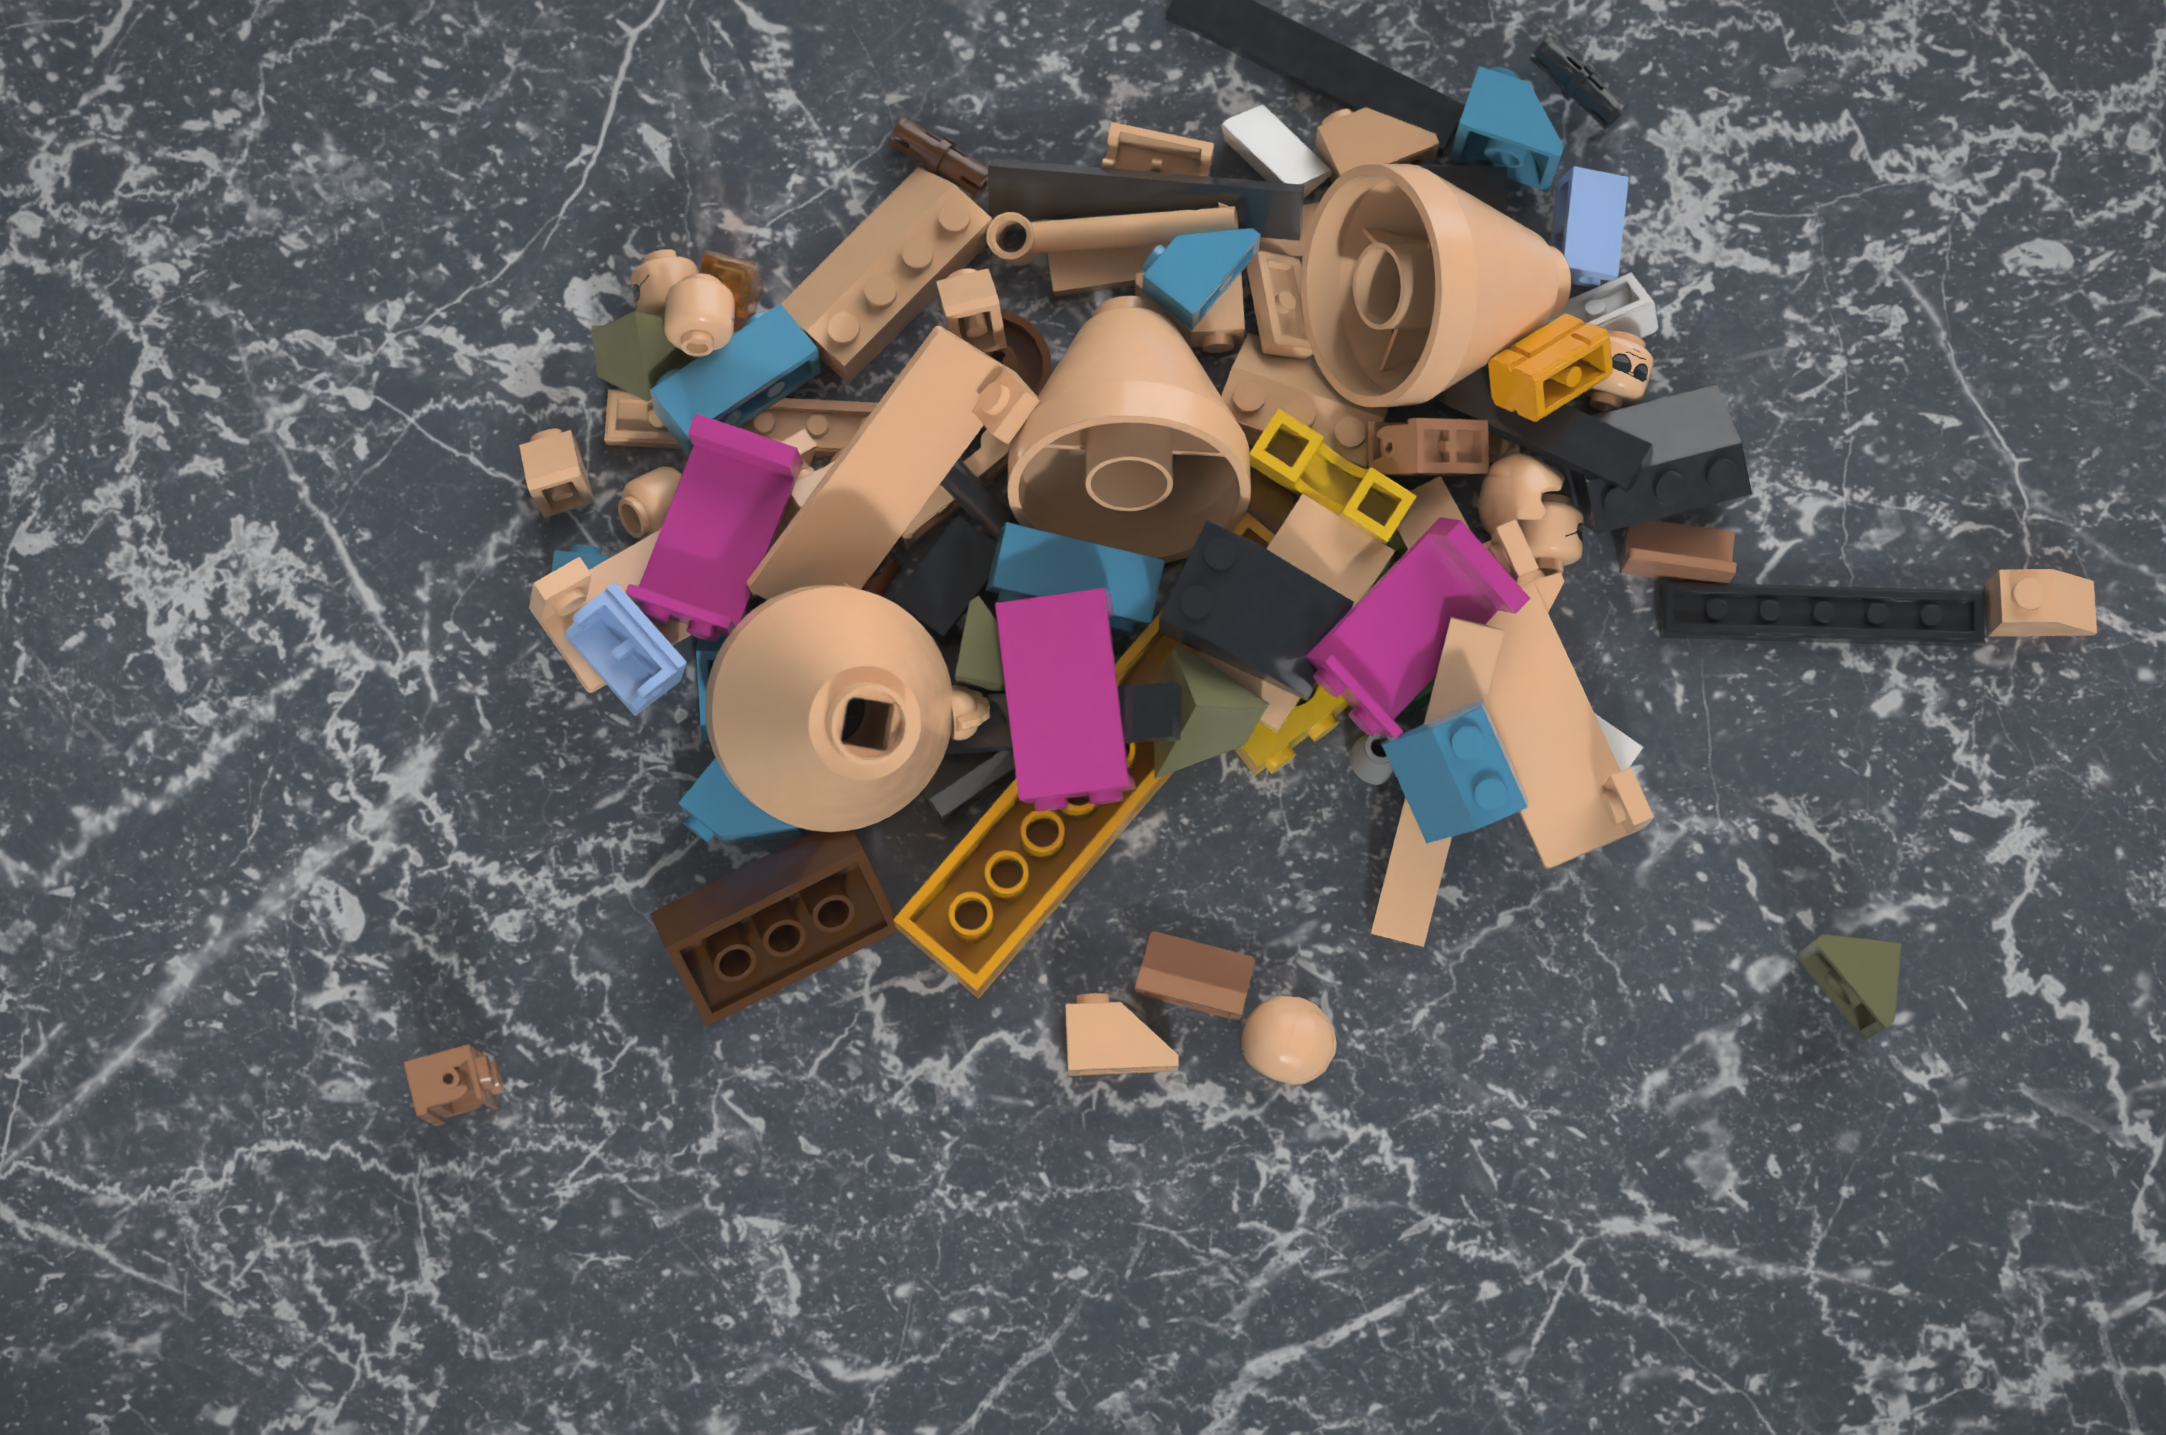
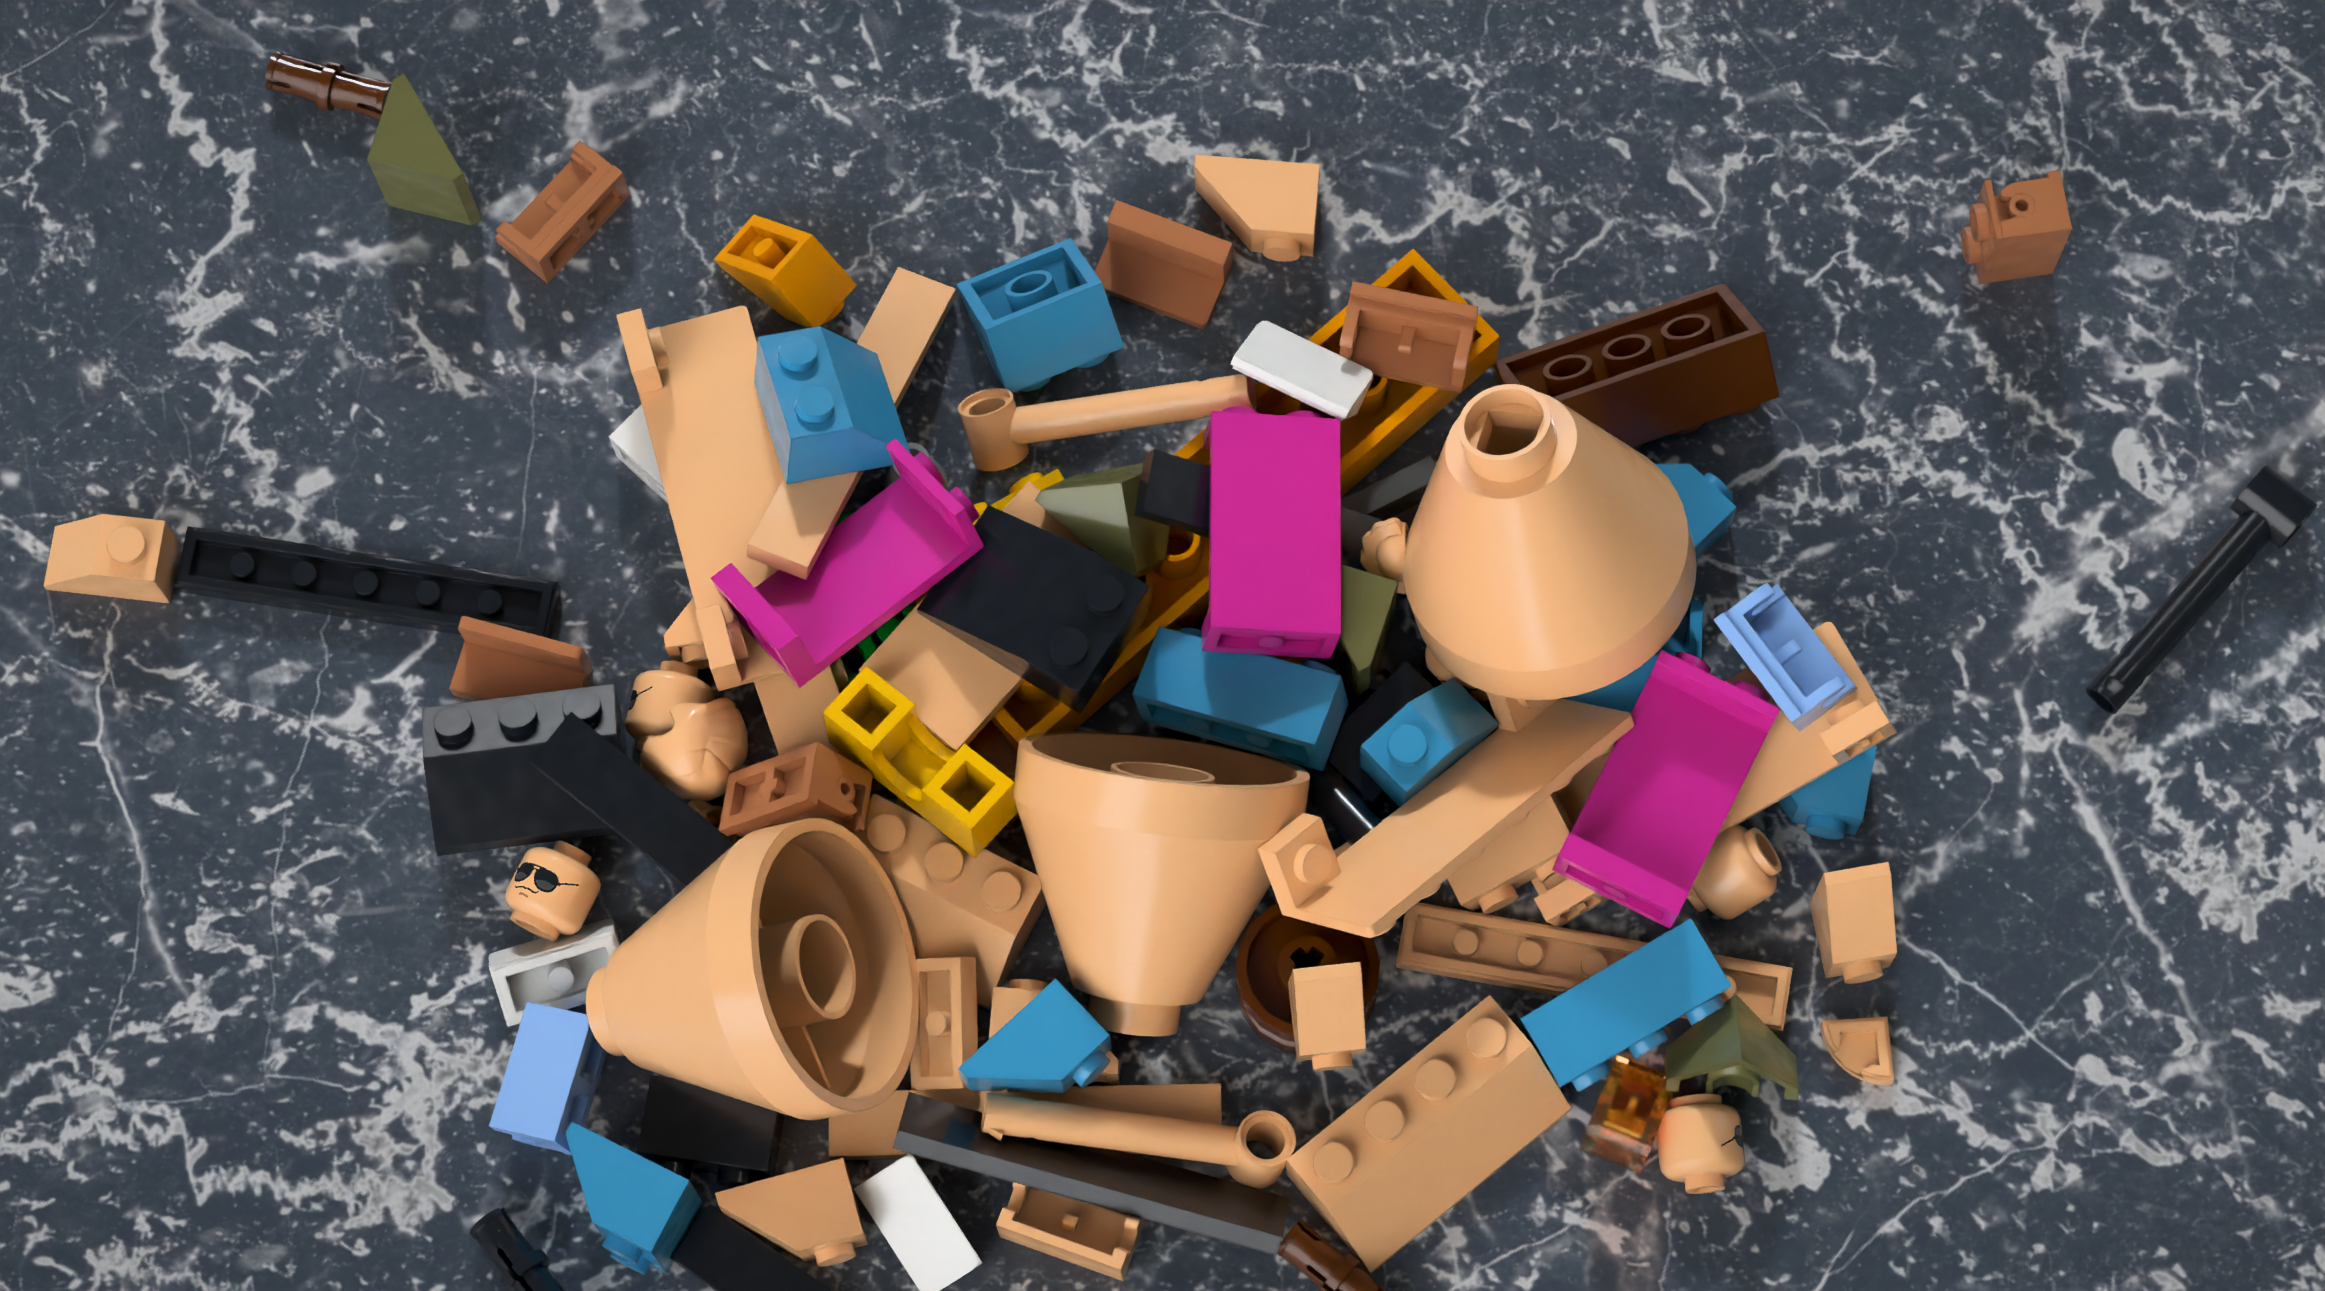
camera: 170 degrees left, 5 degrees down
(230, 869) = (2267, 511): none -> black piece
(544, 388) = (1861, 1047): none -> light nougat tile
(699, 315) = (1662, 1070): light nougat head -> none
(918, 555) = (1425, 740): none -> dark azure slope
(970, 897) = (1409, 336): none -> nougat hinge
(1057, 851) = (1303, 370): none -> white slope
(1288, 1040) = (1067, 185): light nougat hair -> none
(1294, 915) = (1041, 316): none -> dark azure slope
(1307, 799) = (1001, 431): none -> light nougat piece
(1521, 927) = (787, 271): none -> light orange slope
(1550, 367) = (632, 870): light orange brick -> none
(1725, 961) = (565, 213): none -> nougat hinge
(1953, 1055) = (327, 85): none -> reddish brown pin

